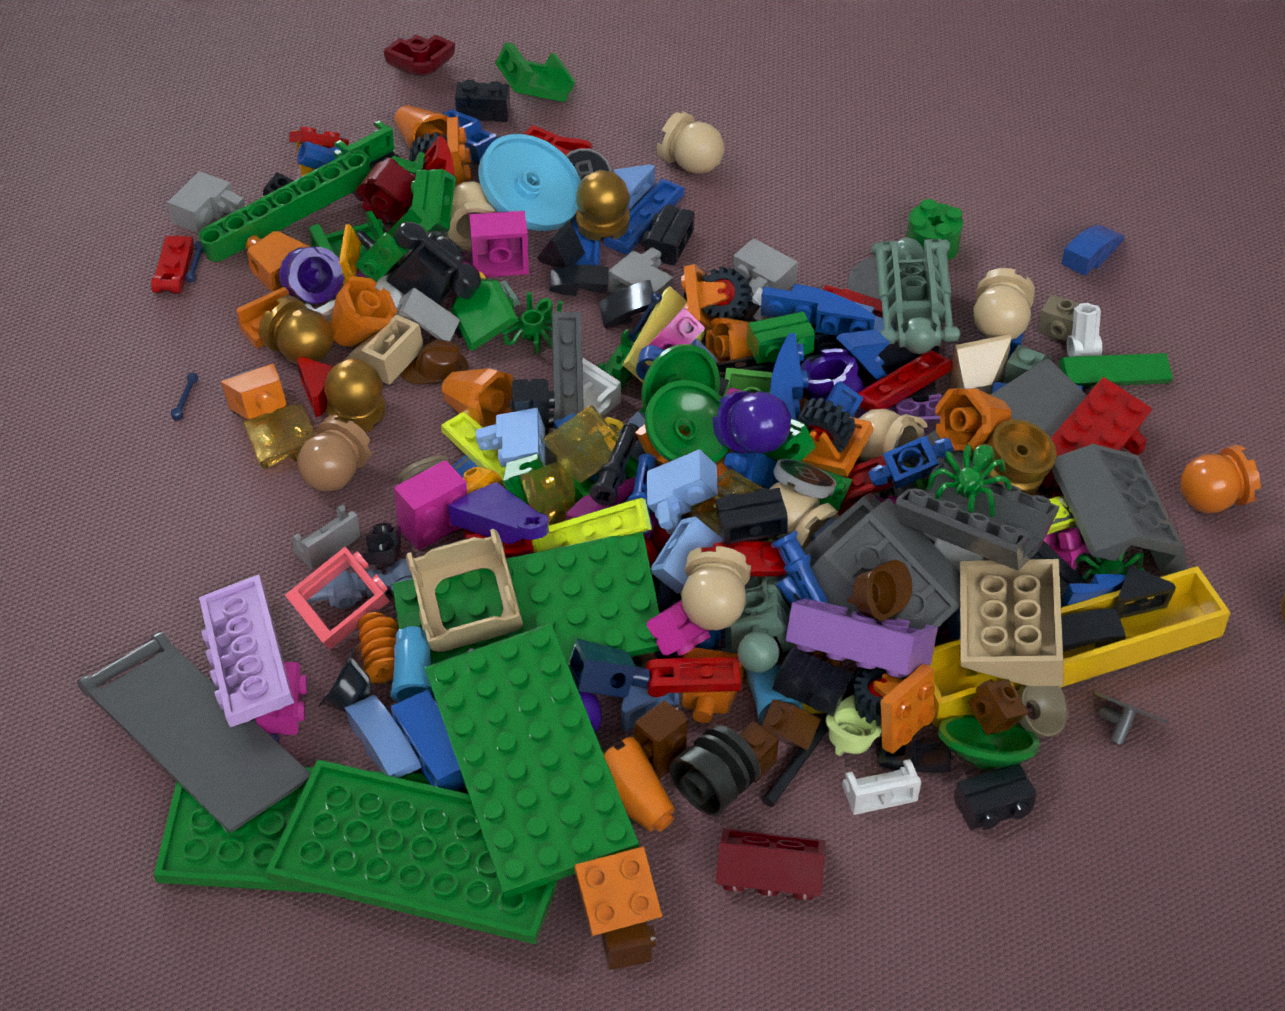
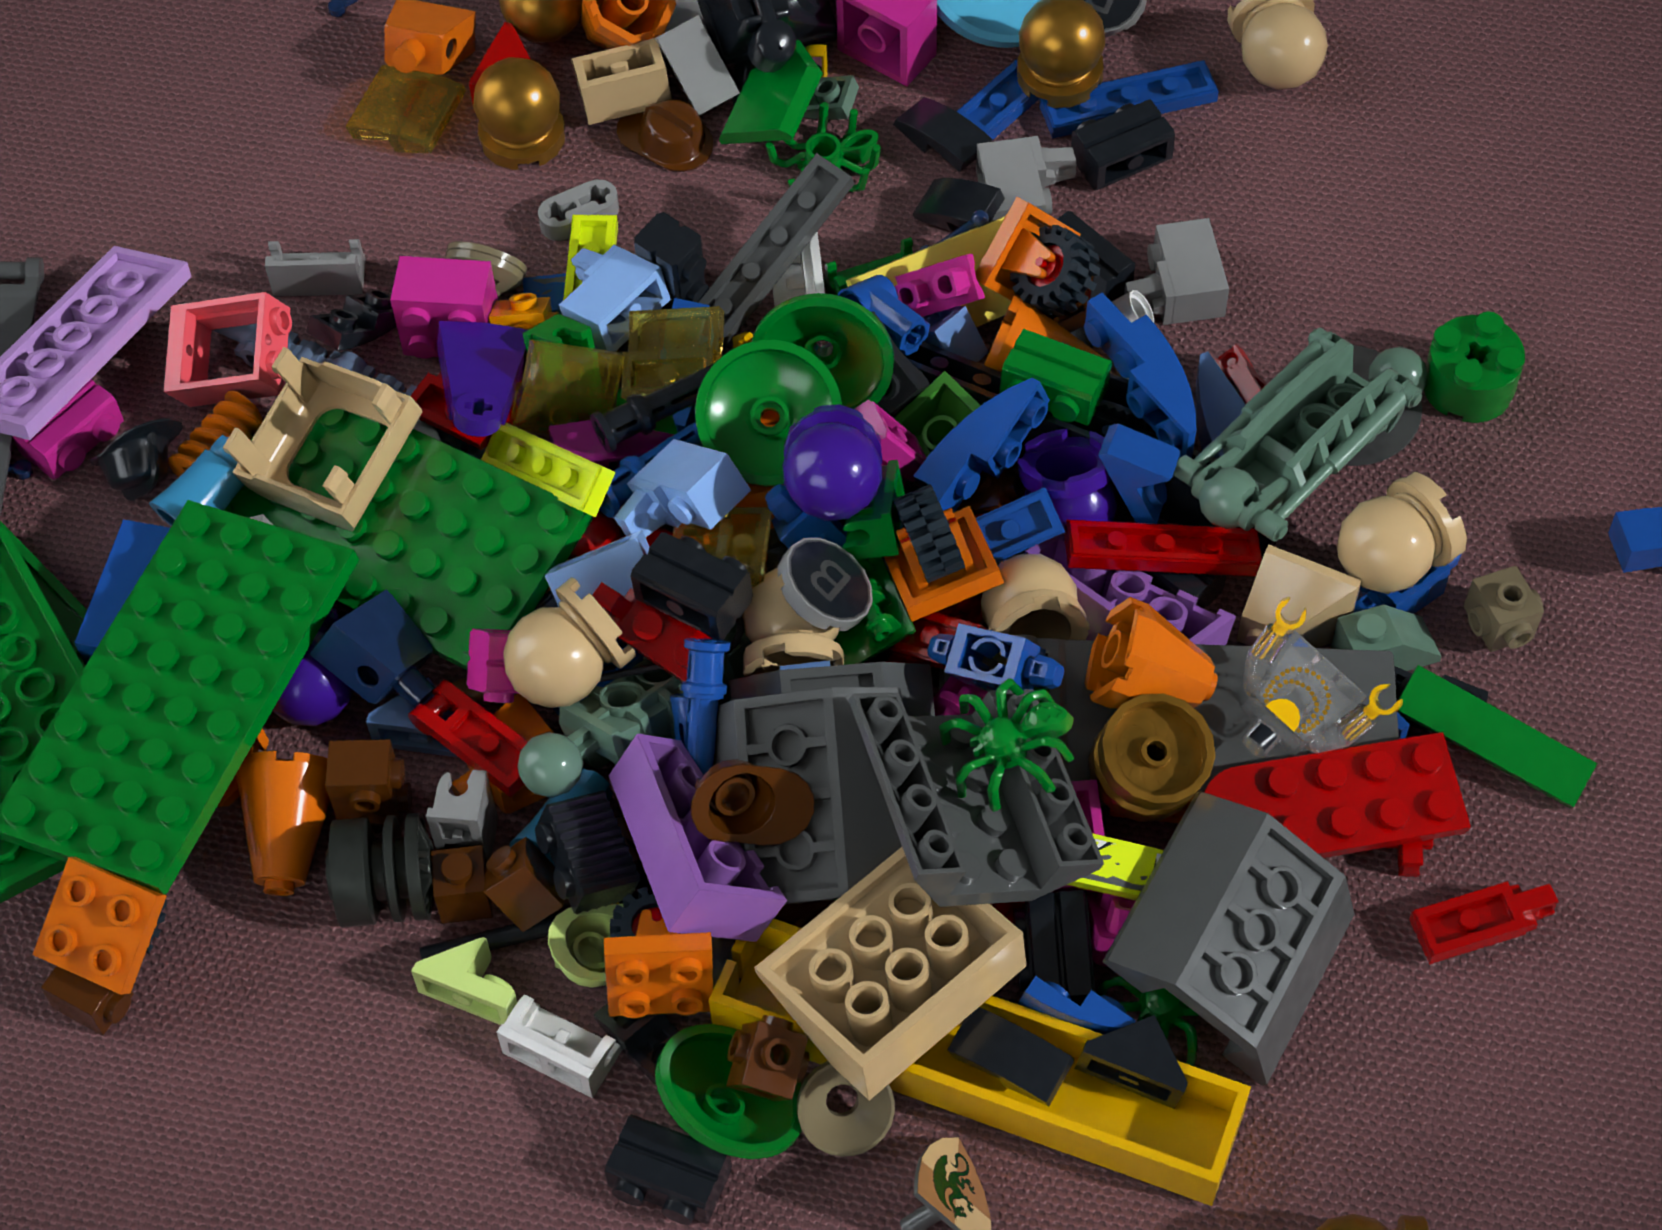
camera: 45 degrees right, 10 degrees up
(333, 455) = (406, 173): medium nougat tile -> none
(382, 737) = (95, 544): medium blue slope -> none
(426, 423) = (576, 202): none -> light grey beam
(479, 393) = (648, 189): orange cone -> none
(563, 248) = (960, 77): black slope -> none
(638, 181) = (1151, 45): medium blue slope -> none
(734, 709) = (464, 818): none -> light grey hinge
(770, 863) = (334, 1029): dark red slope -> none
(808, 796) = (458, 981): none -> yellowish green slope
(1041, 394) = (1301, 695): none -> clear torso
(1085, 332) = (1502, 658): white piece -> none
(1191, 443) = (1480, 919): none -> red hinge
(1220, 480) = (1435, 994): orange tile -> none

